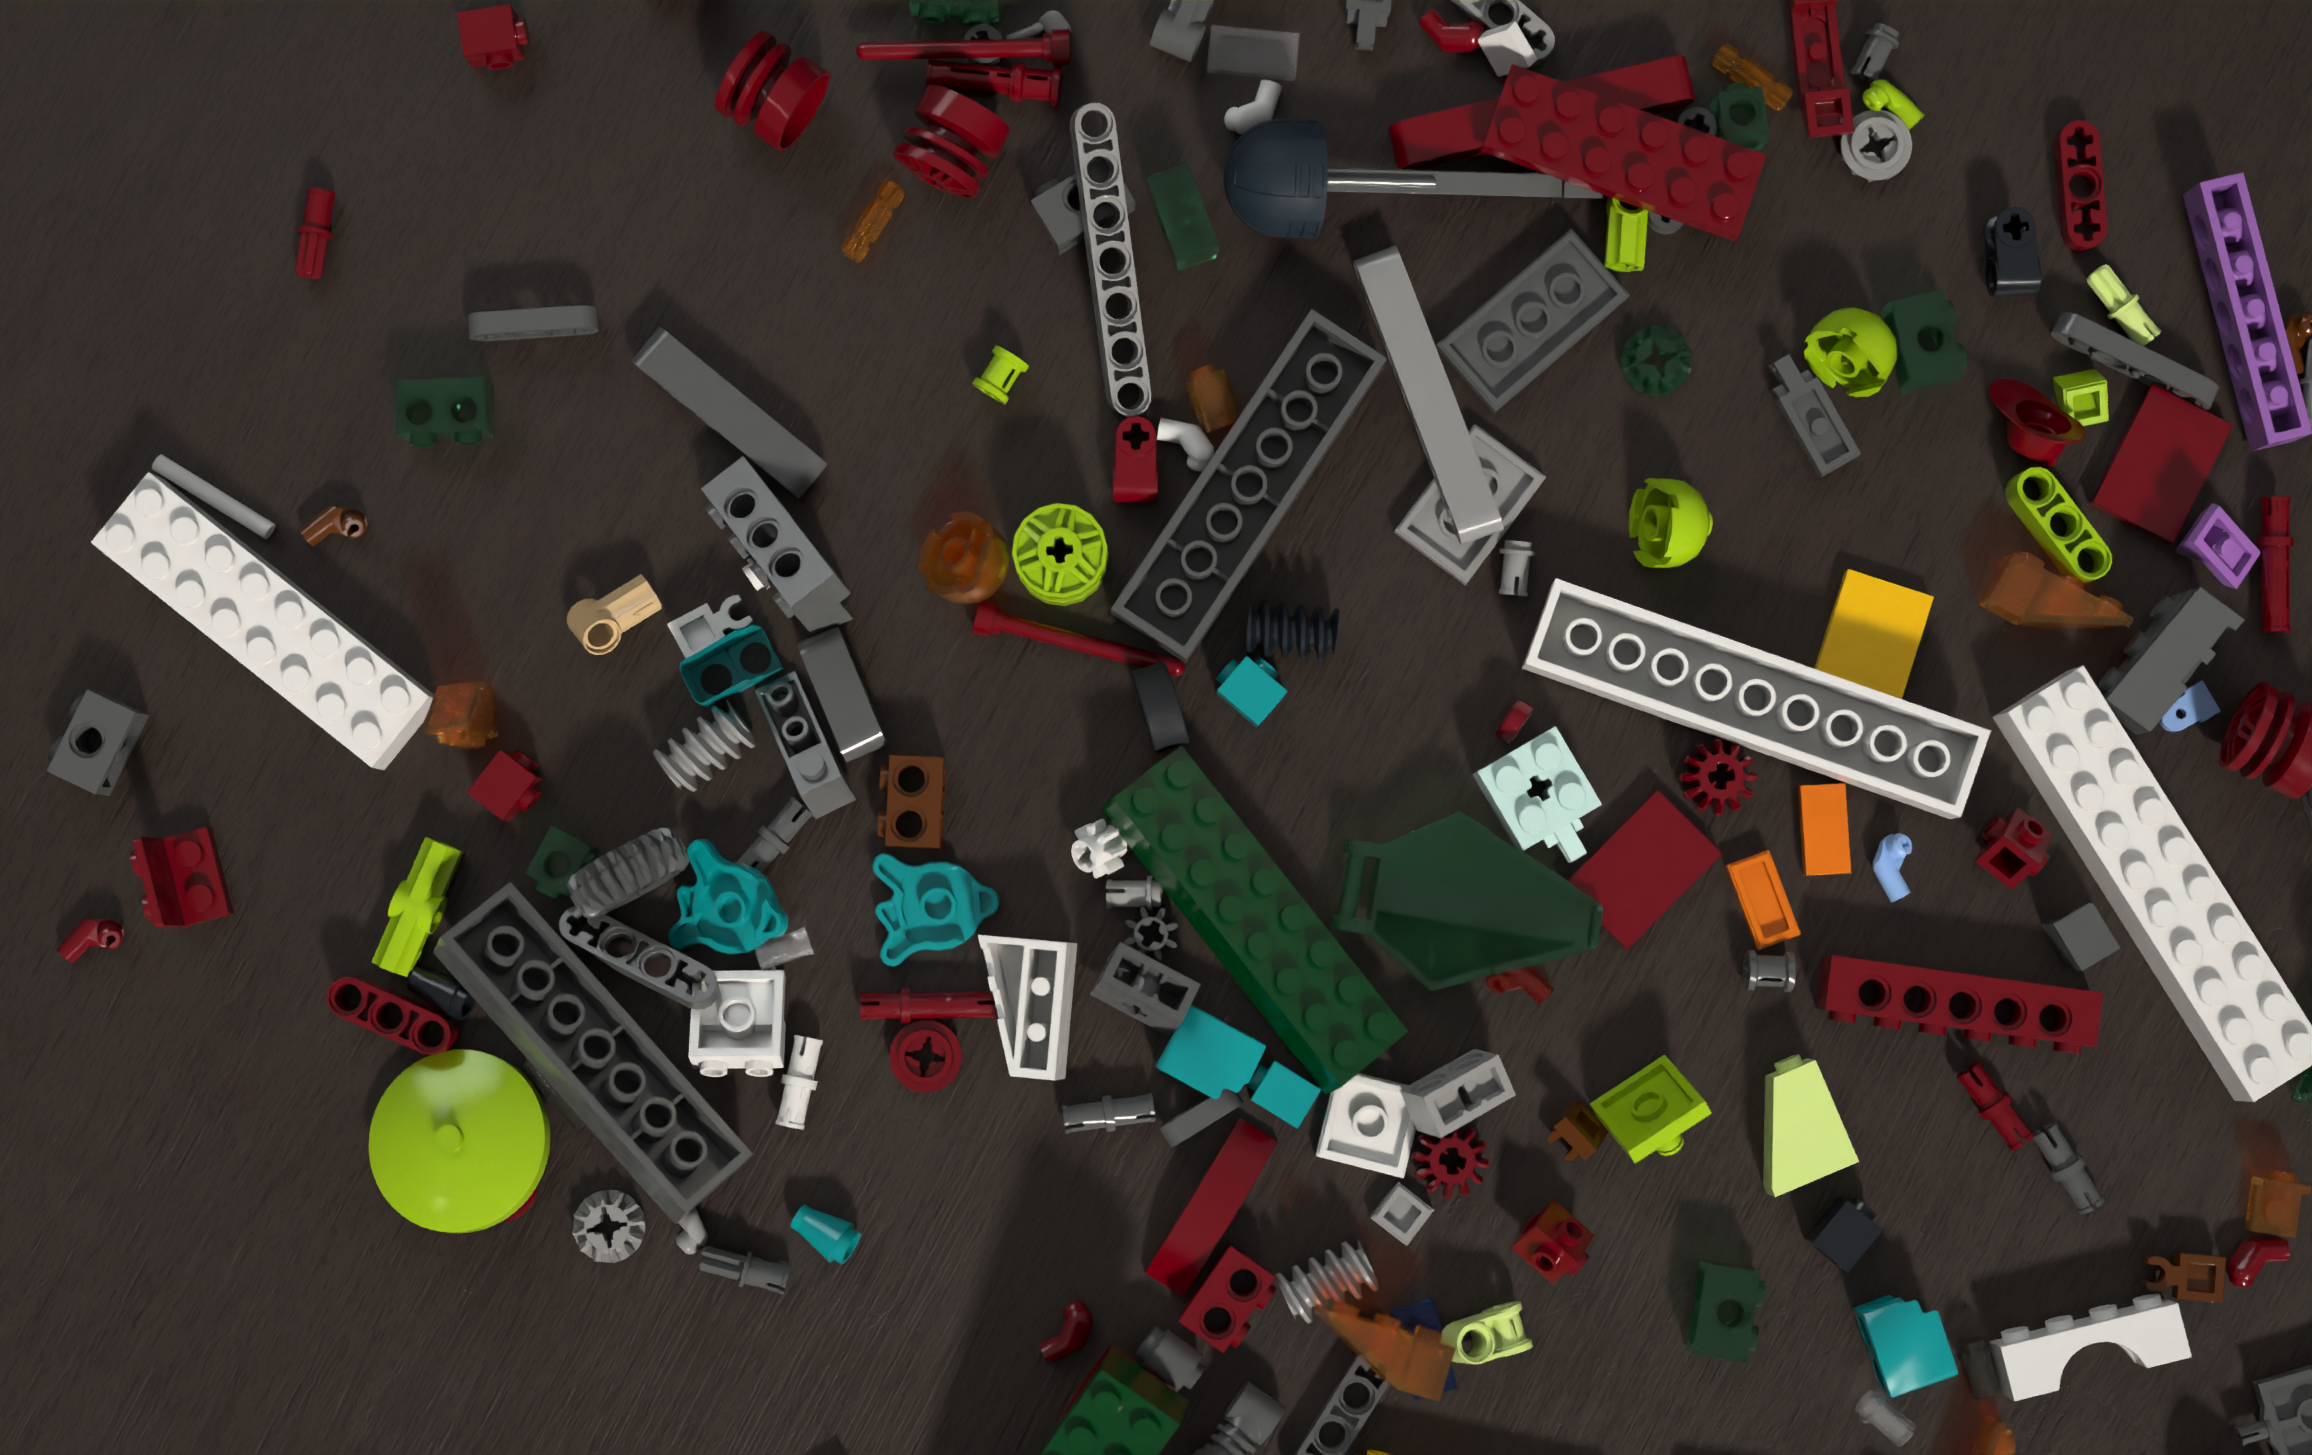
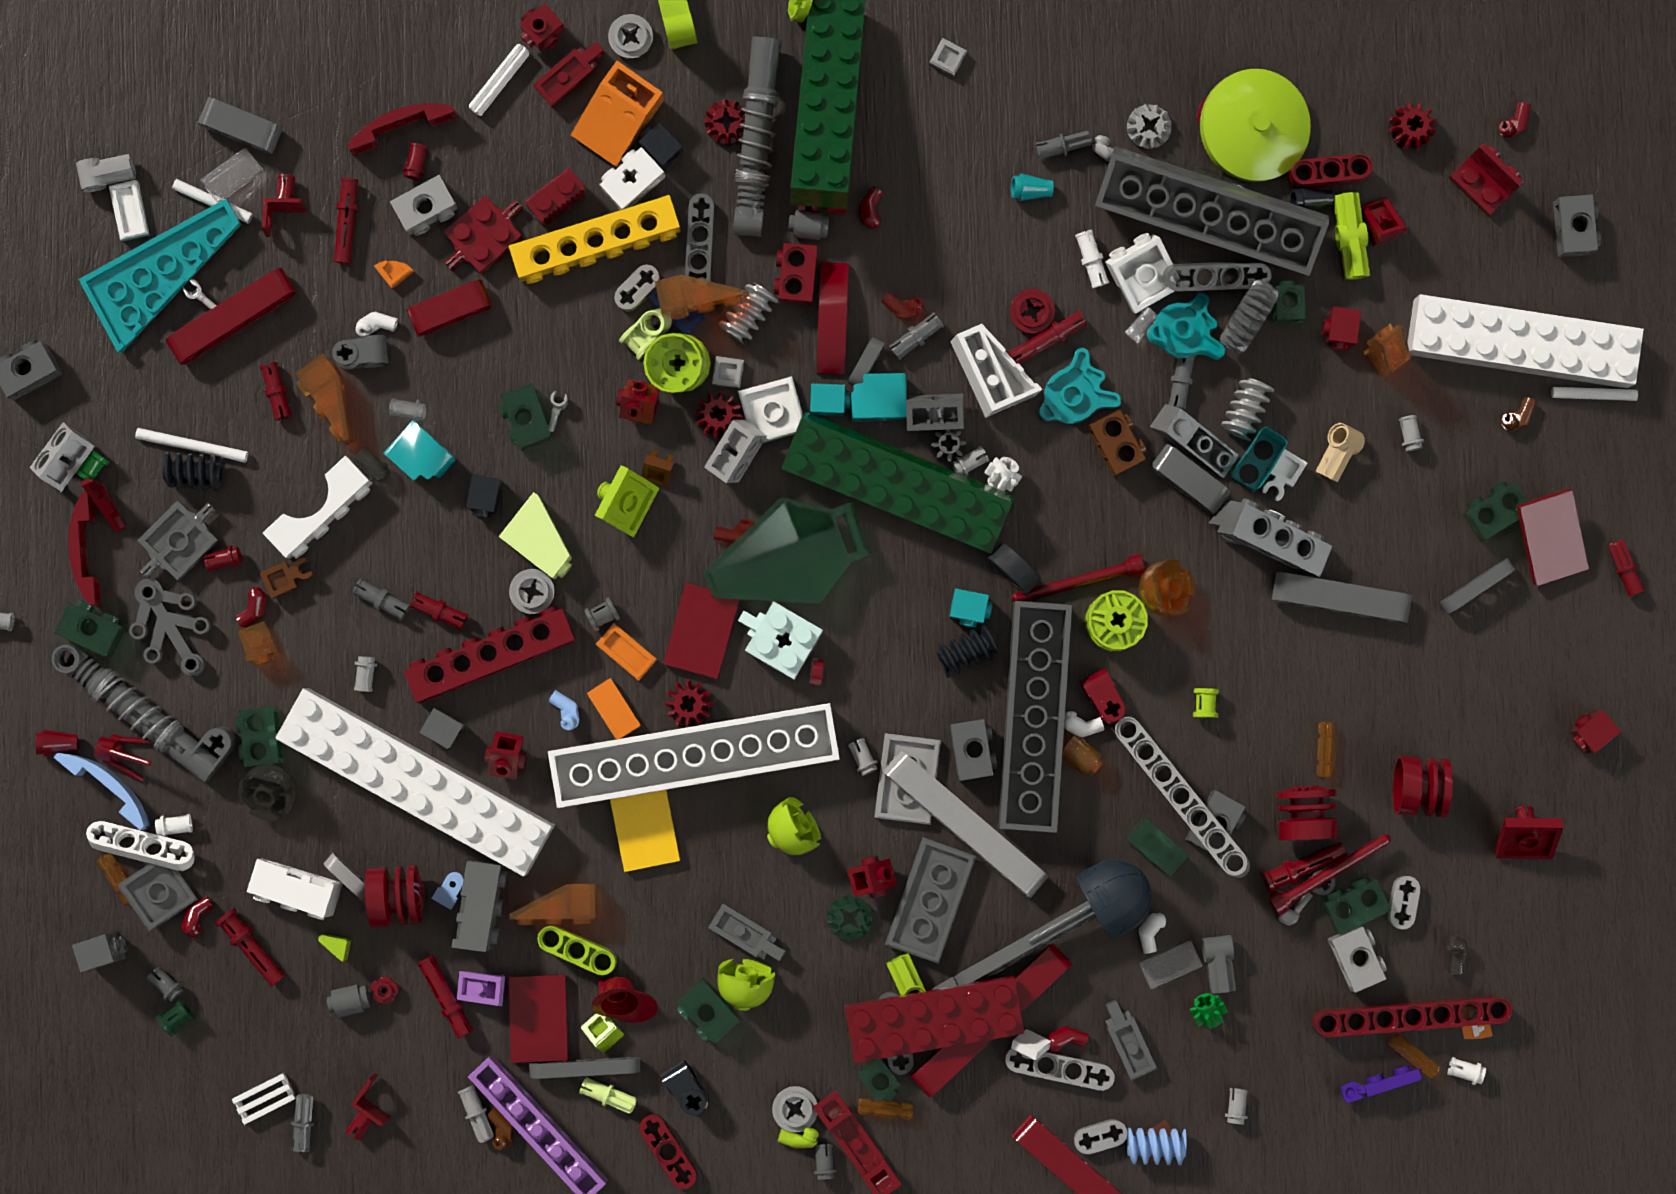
camera: 150 degrees right, 0 degrees up
(237, 994) = (1416, 137): none -> dark red gear
(361, 903) = (1382, 221): none -> dark red slope
(390, 329) = (1552, 537): none -> tile
(499, 584) = (1411, 433): none -> light grey pin
(1102, 1162) = (905, 308): none -> clear red arm
(1378, 472) = (967, 766): none -> dark grey brick
(1467, 1418) = (632, 283): none -> light grey beam
(1495, 1259) = (660, 361): none -> lime wheel
(1597, 394) = (872, 877): none -> dark red brick
(1674, 1297) = (556, 410): none -> light grey hand
(1870, 1058) = (526, 579): none -> light grey gear
(2147, 1076) = (364, 673): none -> light grey pin
(2250, 1349) = (223, 558): none -> dark red pin

